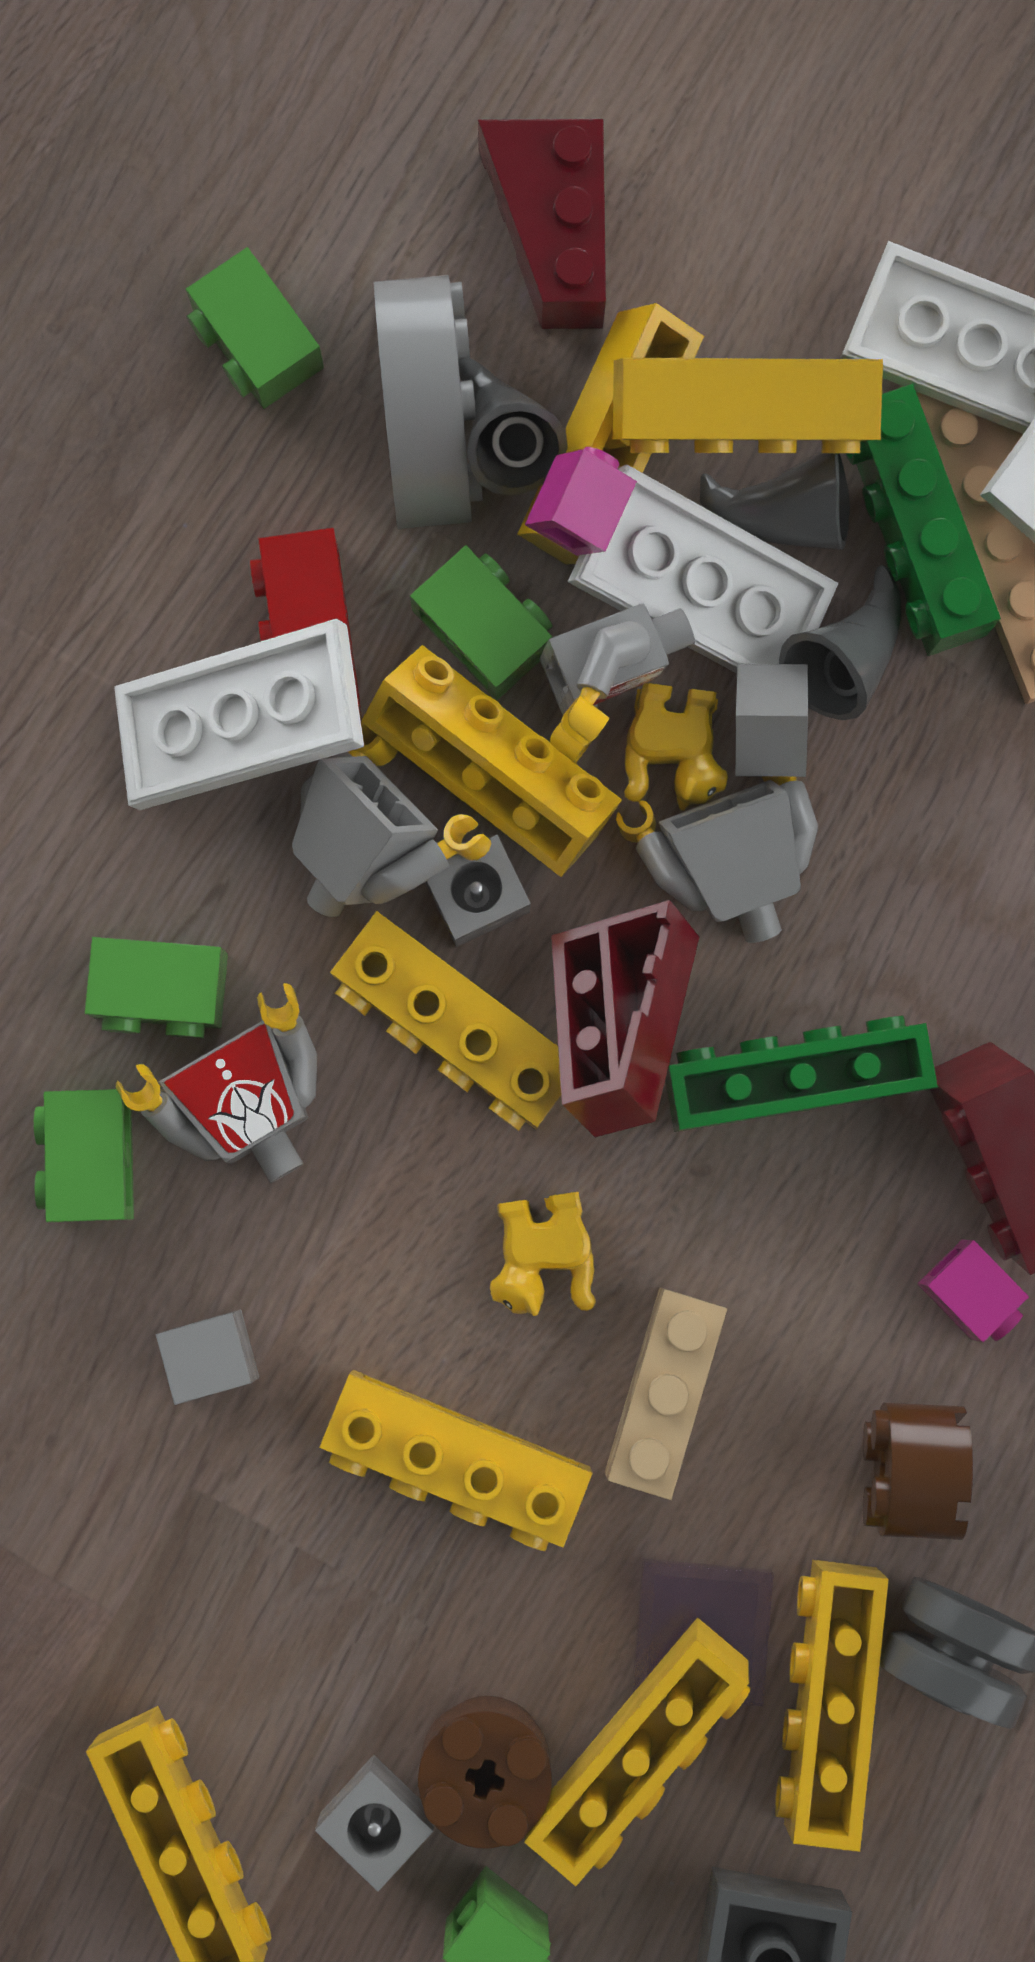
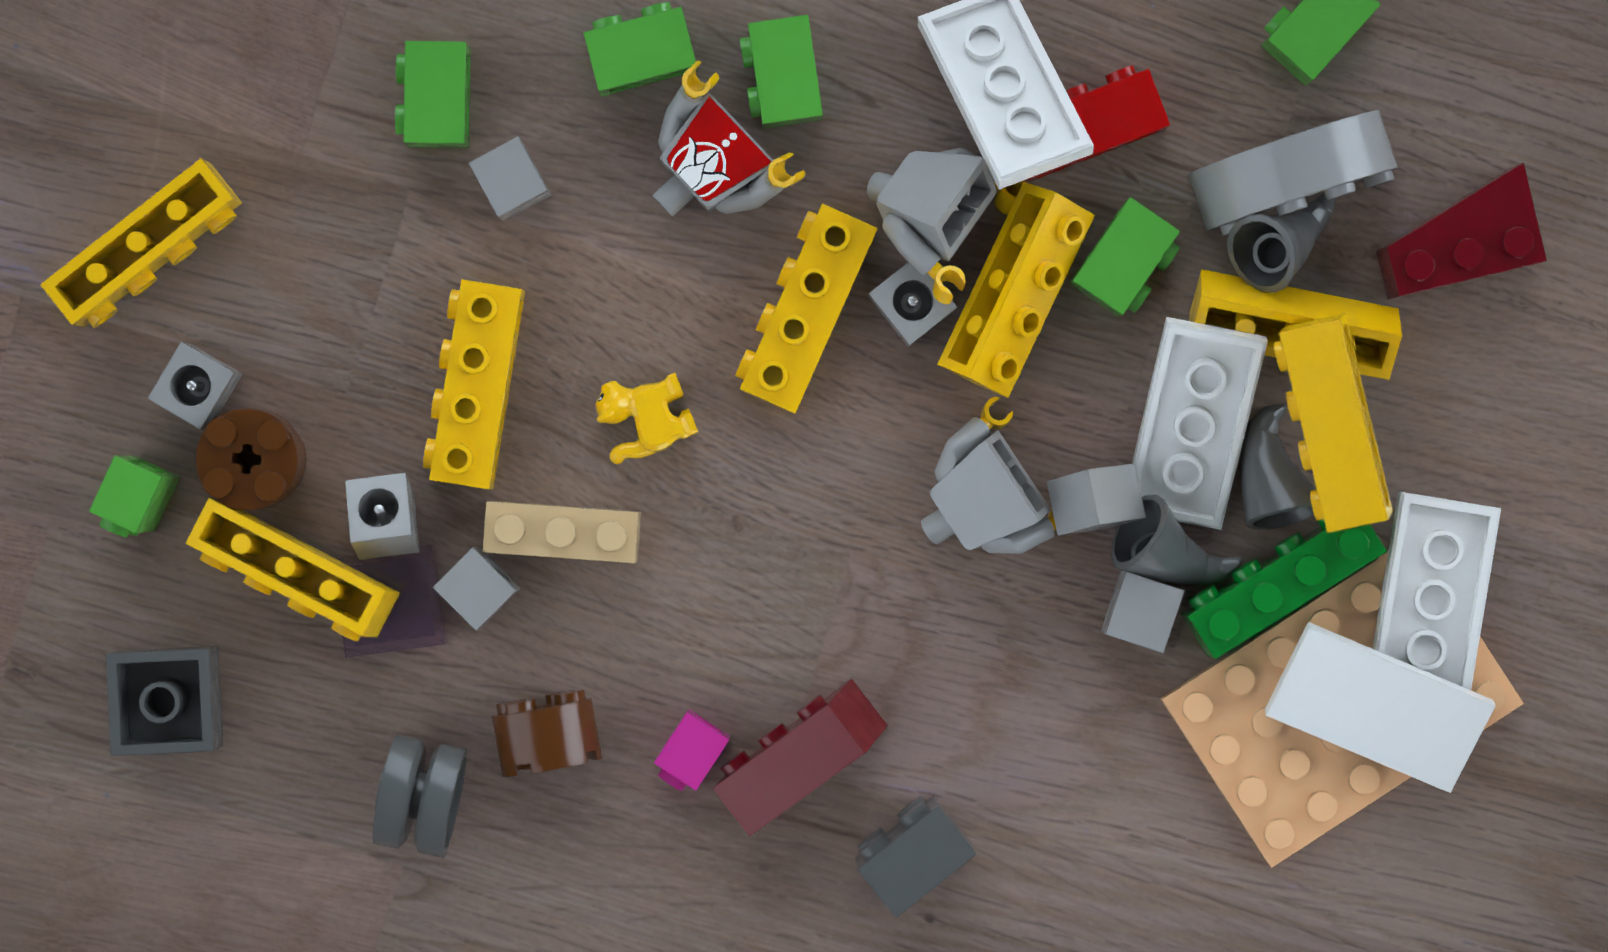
camera: 80 degrees right, 5 degrees up
(79, 1428) = (434, 94): none -> bright green brick
(581, 501) = (1227, 312): dark pink brick -> none
(595, 1618) = (382, 516): none -> light grey piece
(604, 662) = (1109, 361): light grey torso -> none
(620, 1012) = (840, 432): dark red wedge -> none
(674, 738) = (1067, 429): yellow animal -> none
(713, 1517) = (476, 587): none -> light grey piece
(801, 1076) = (823, 582): green brick -> none
(834, 1705) = (359, 709): yellow brick -> none
(919, 697) = (1142, 611): none -> light grey piece

